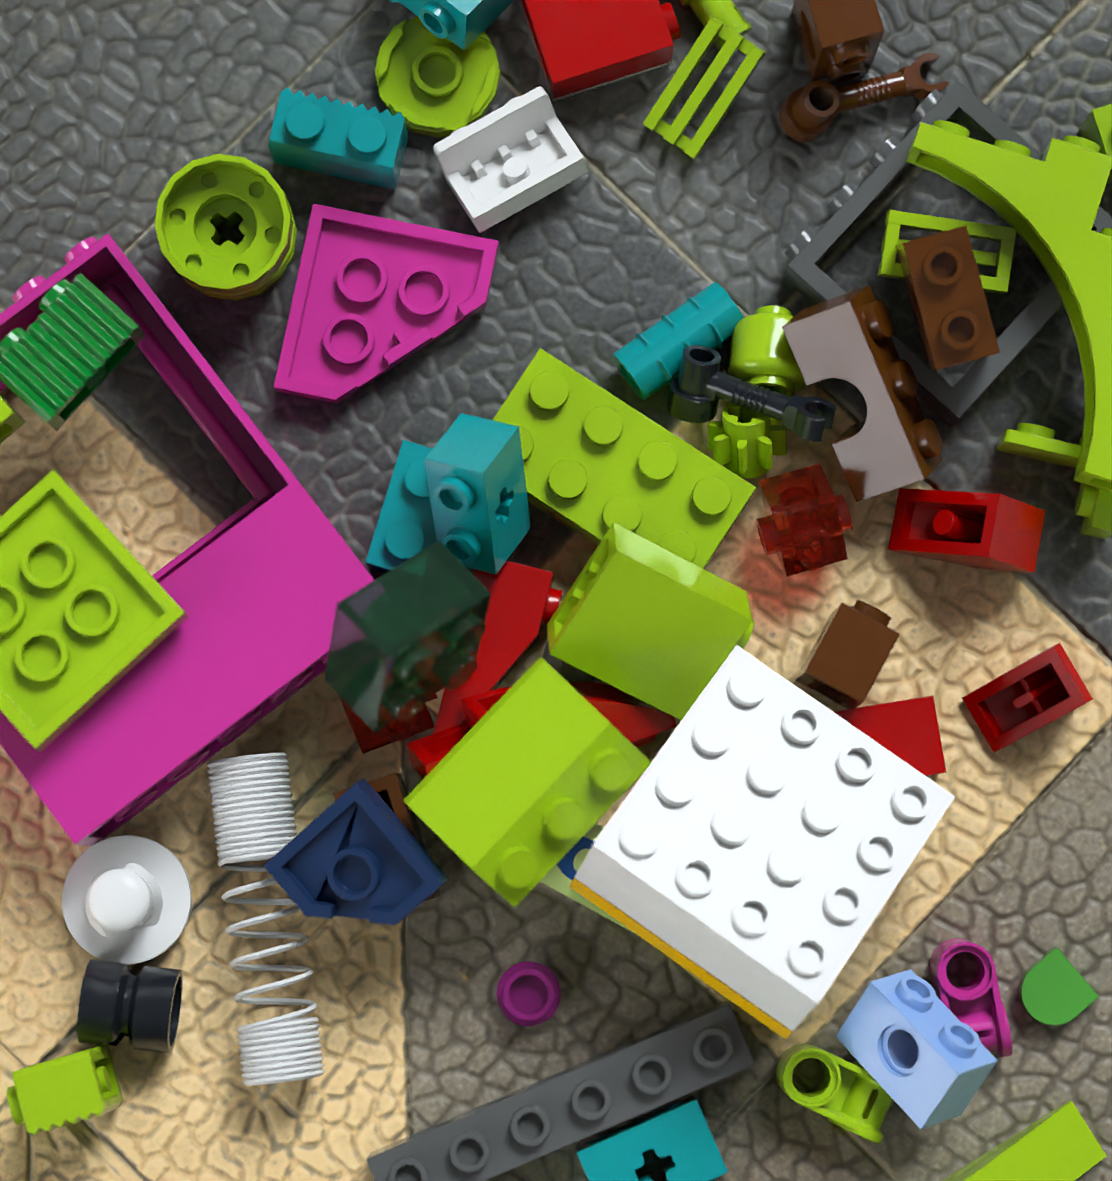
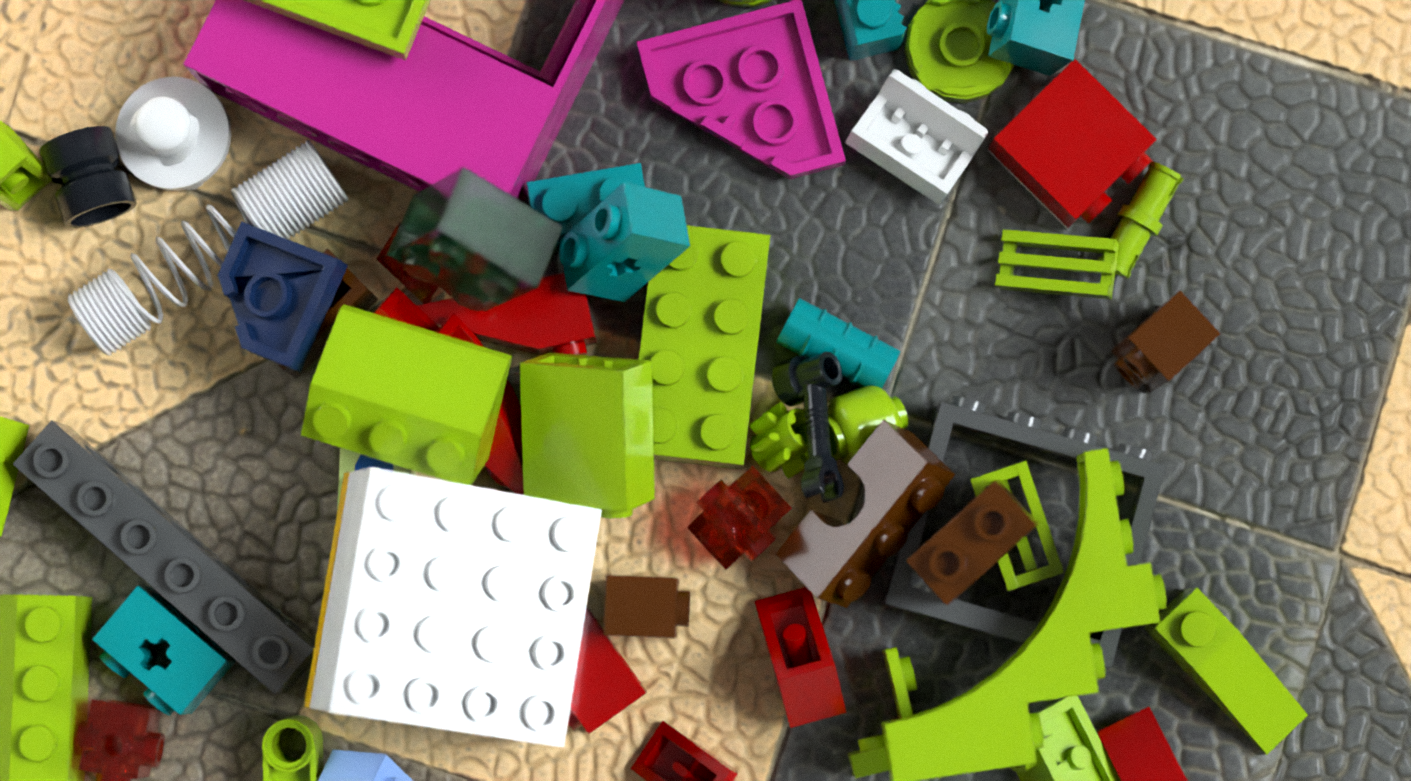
camera: 65 degrees right, 0 degrees up
(528, 993) = (252, 487): magenta plate -> none
(807, 124) = (1069, 364): reddish brown brick -> none

